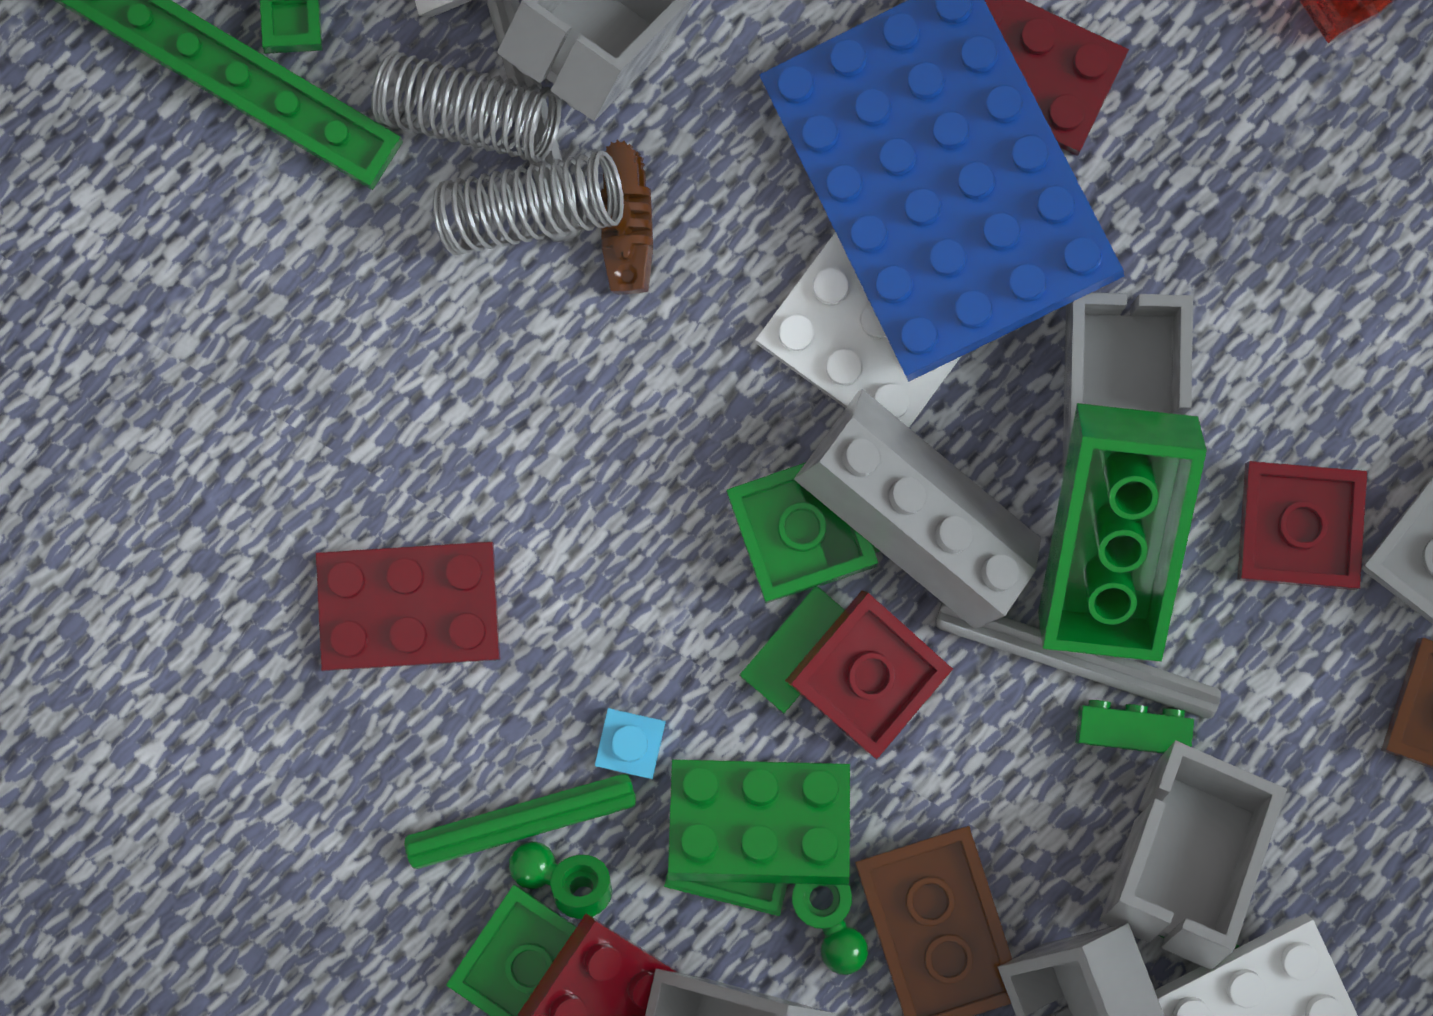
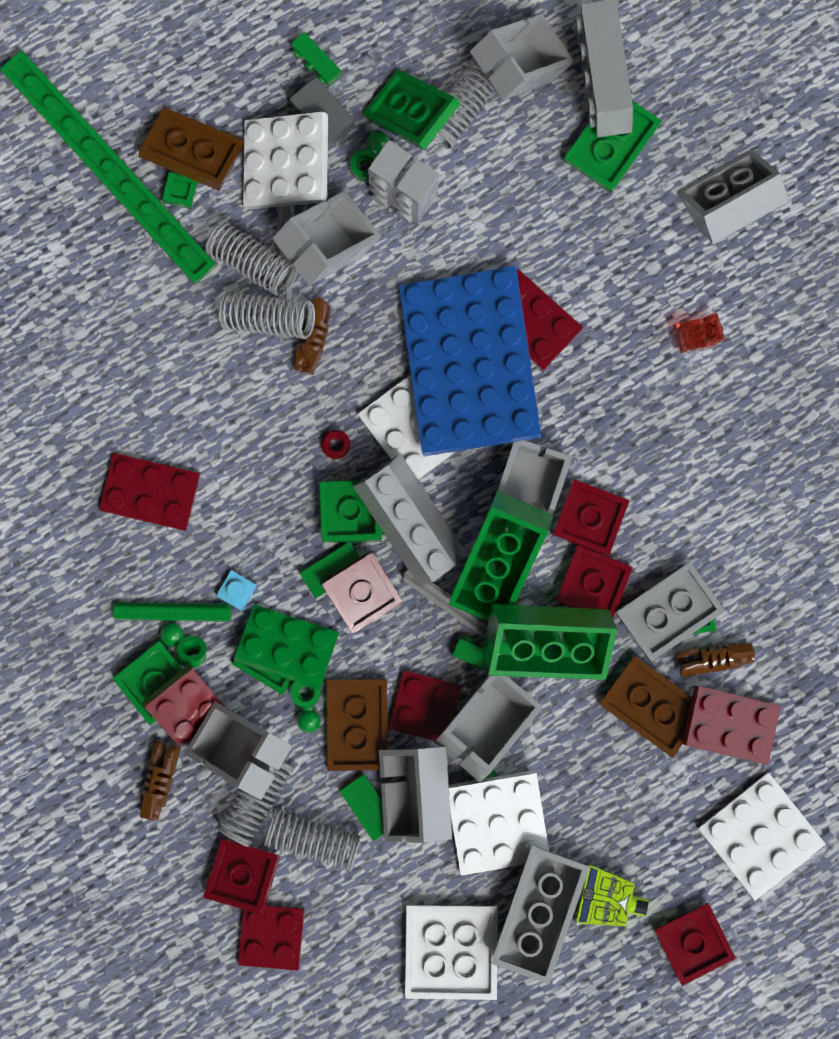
camera: 10 degrees right, 0 degrees up
(731, 391) = (335, 435): none -> dark red plate
(1054, 855) = (424, 705): none -> dark red plate
(1258, 401) = (591, 518): none -> dark red plate
(1260, 662) = (549, 642): none -> green brick

